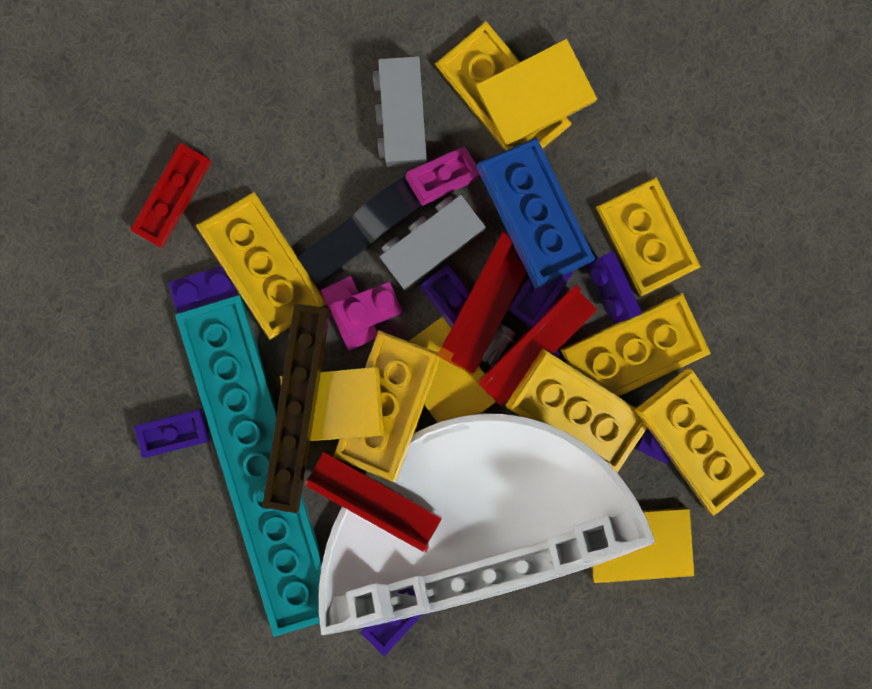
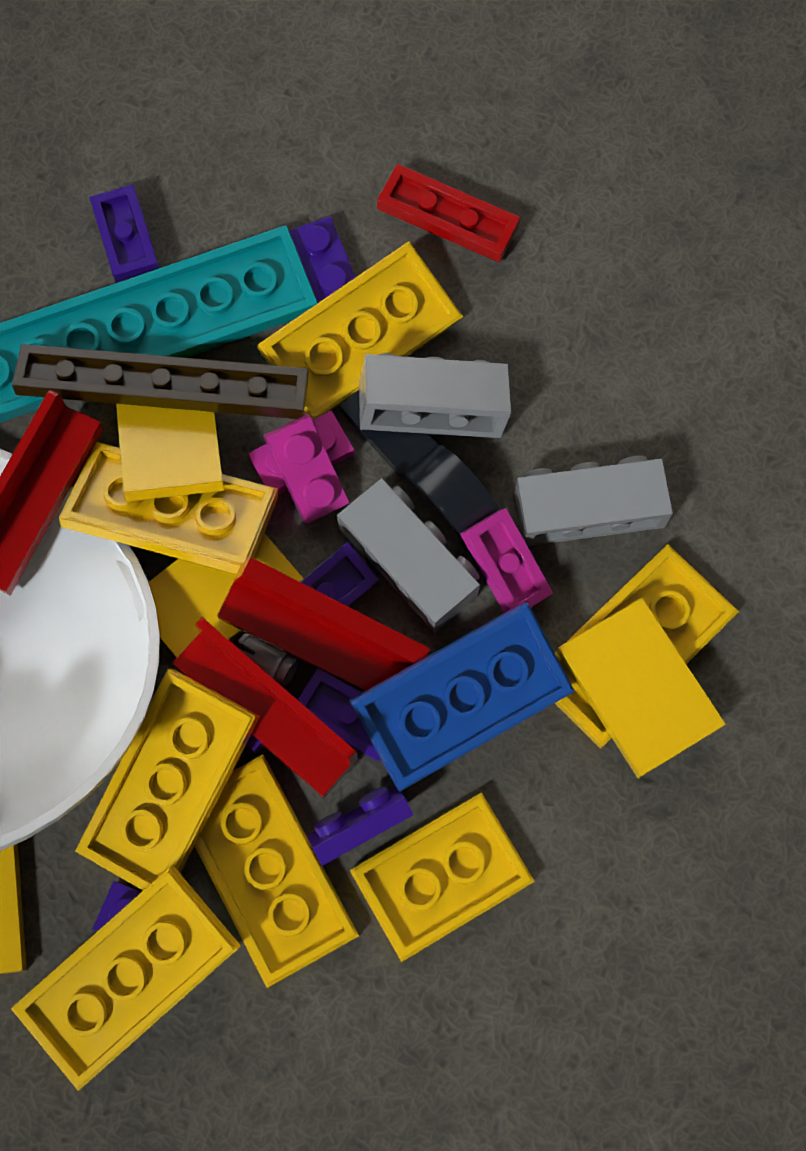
camera: 85 degrees right, 15 degrees down
(318, 215) = (434, 396): none -> light grey brick

